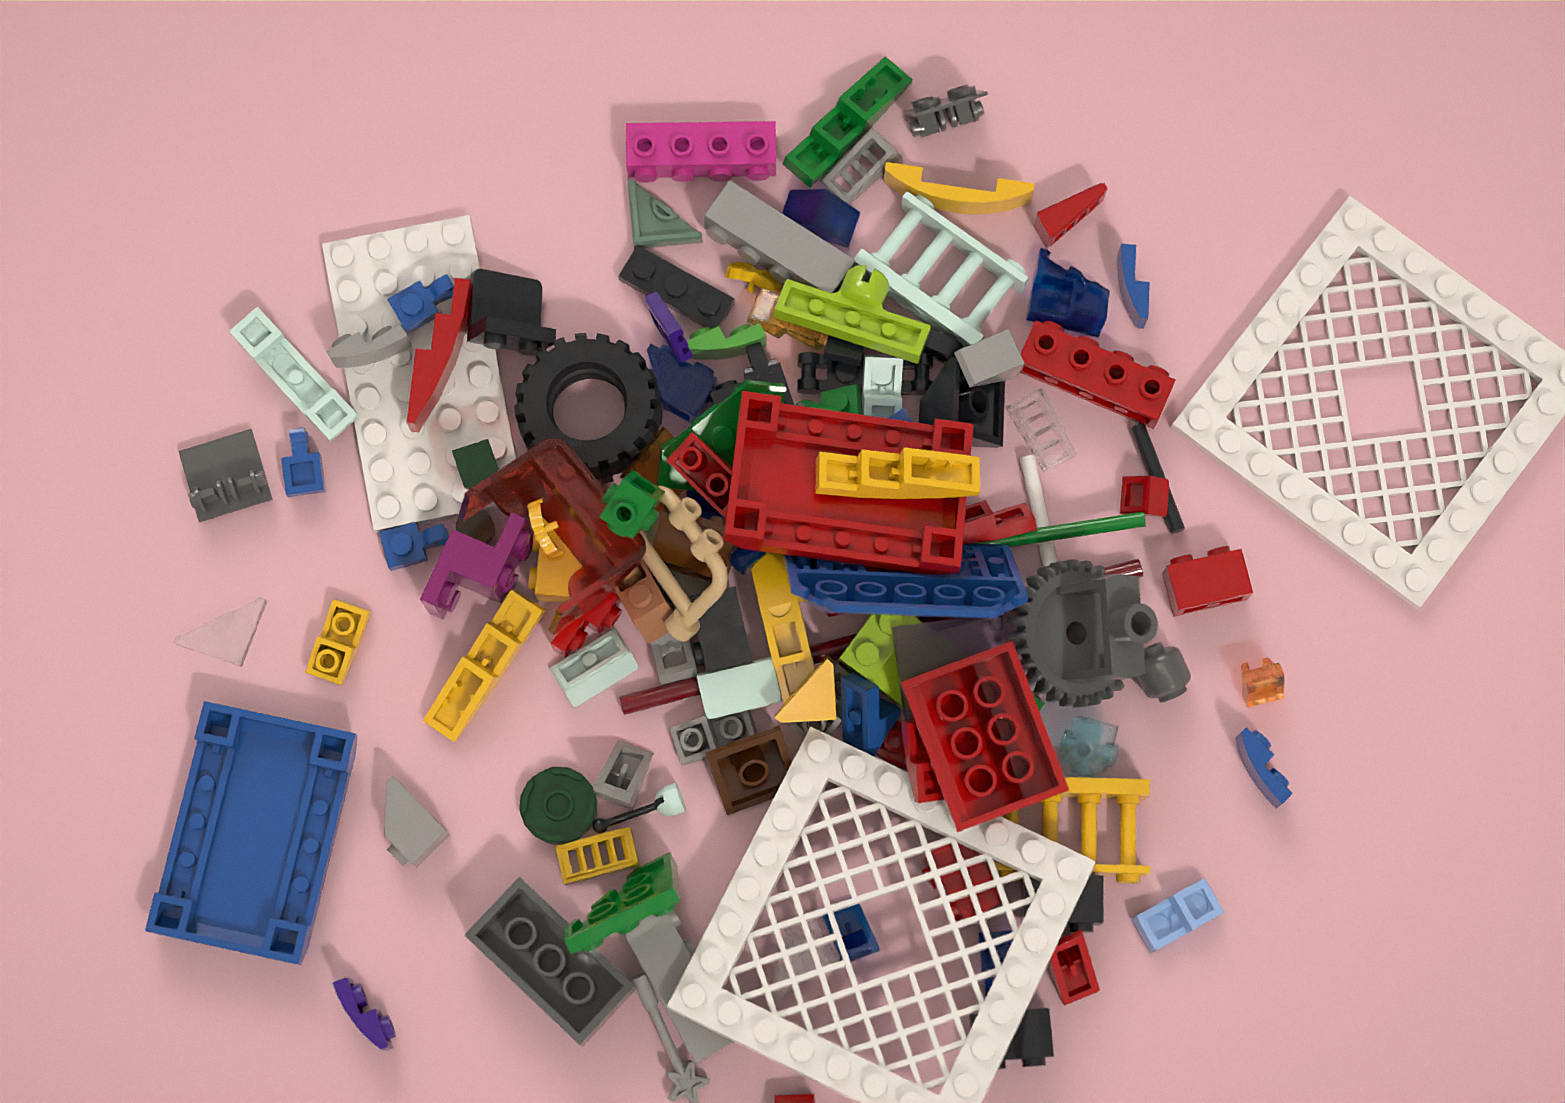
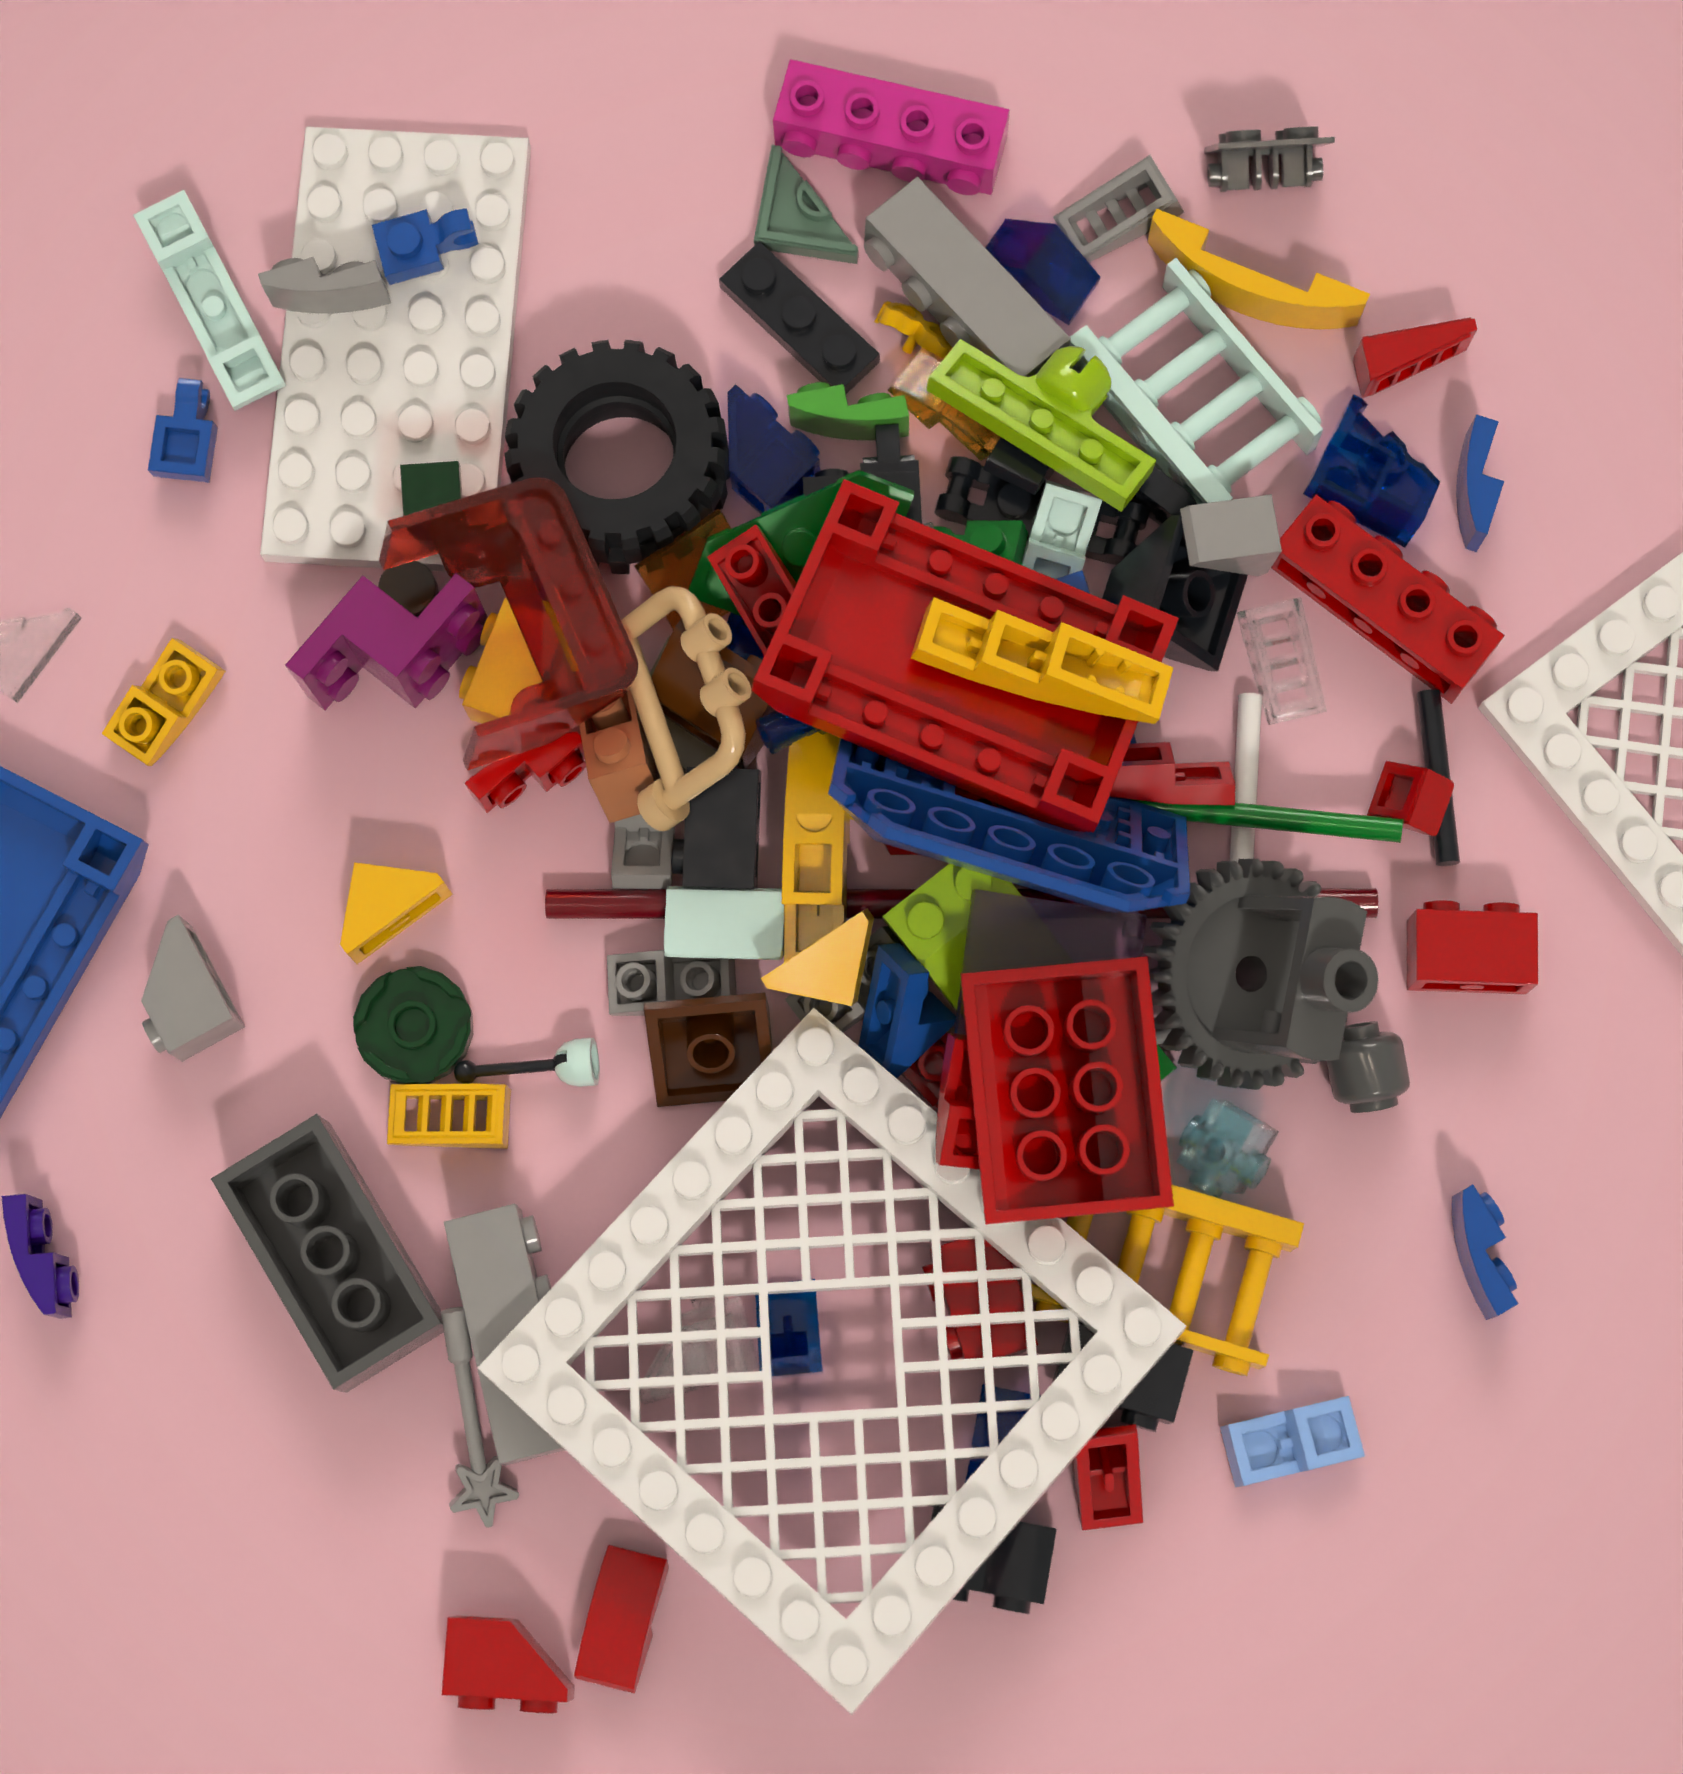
camera: 20 degrees right, 0 degrees up
(225, 475) = (72, 422): dark grey hinge -> none
(407, 545) = (303, 588): blue plate -> none
(434, 366) = (414, 336): red slope -> none
(484, 665) = (363, 792): yellow slope -> none
(507, 313) = (540, 288): black bracket -> none
(519, 733) = (386, 903): none -> yellow slope
(541, 530) = (495, 613): yellow piece -> none
(594, 668) = (523, 839): light aqua slope -> none
(623, 775) = (519, 1005): light grey slope -> none
(631, 505) = (629, 603): green brick -> none
(646, 892) = (496, 1191): green plate -> none
(668, 327) = (768, 367): dark purple tile -> none
(847, 122) = (1105, 146): green slope -> none
(1262, 683) = (1516, 1125): clear orange tile -> none

